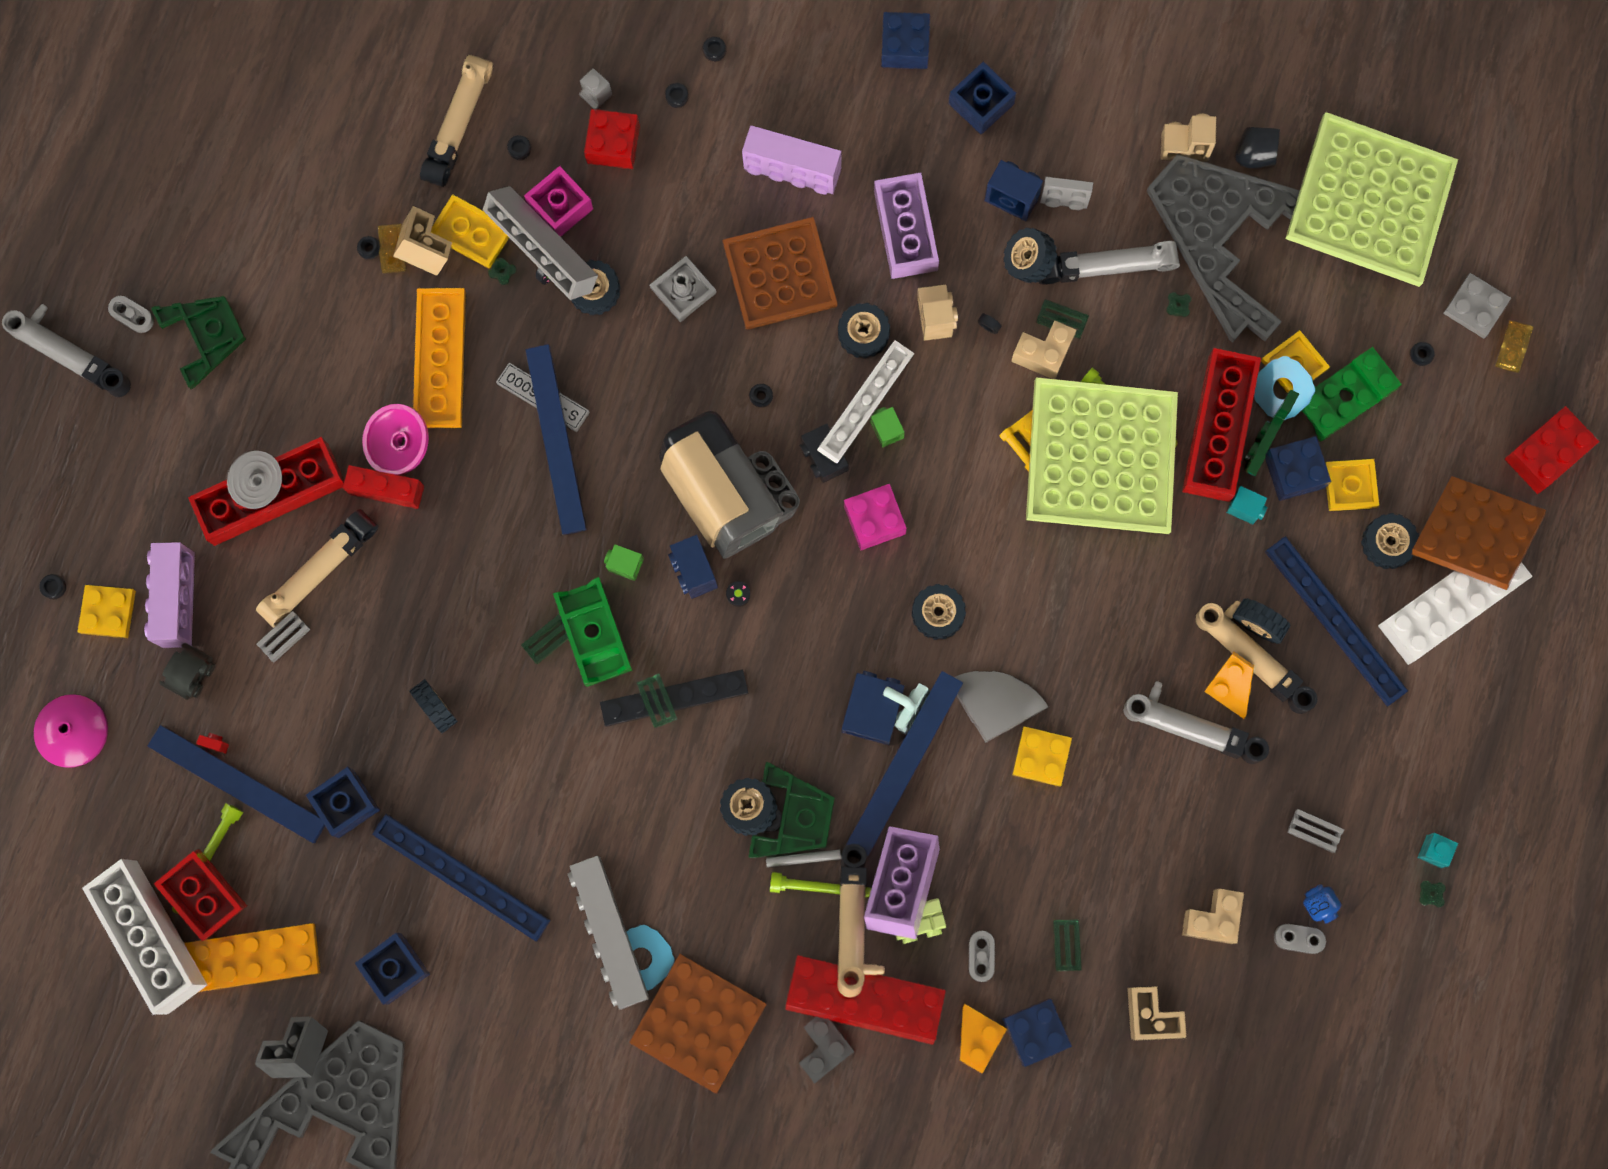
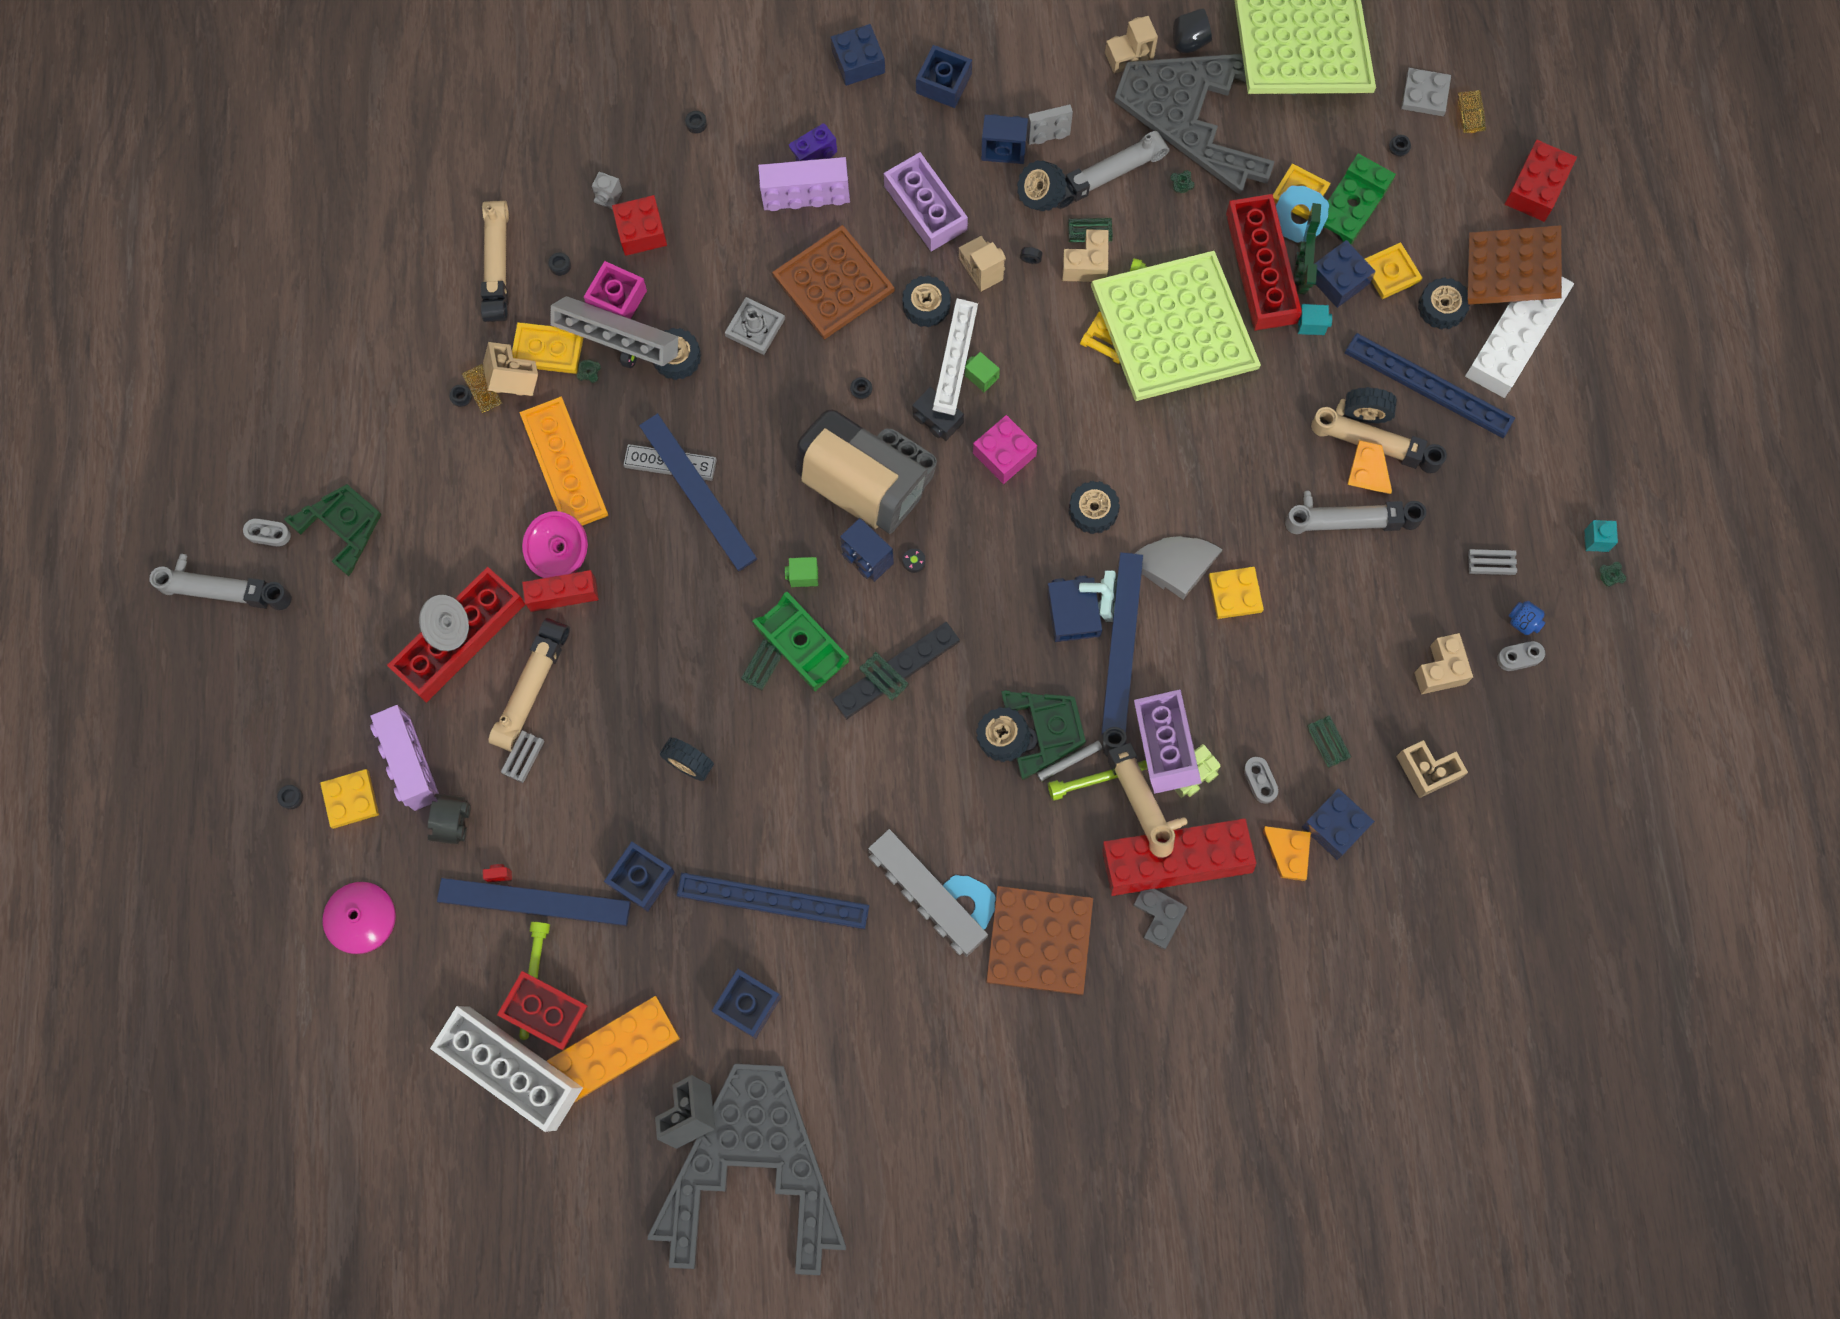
camera: 25 degrees left, 5 degrees down
(676, 95) = (679, 171): black tile -> none
(818, 123) = (815, 145): none -> dark purple bracket

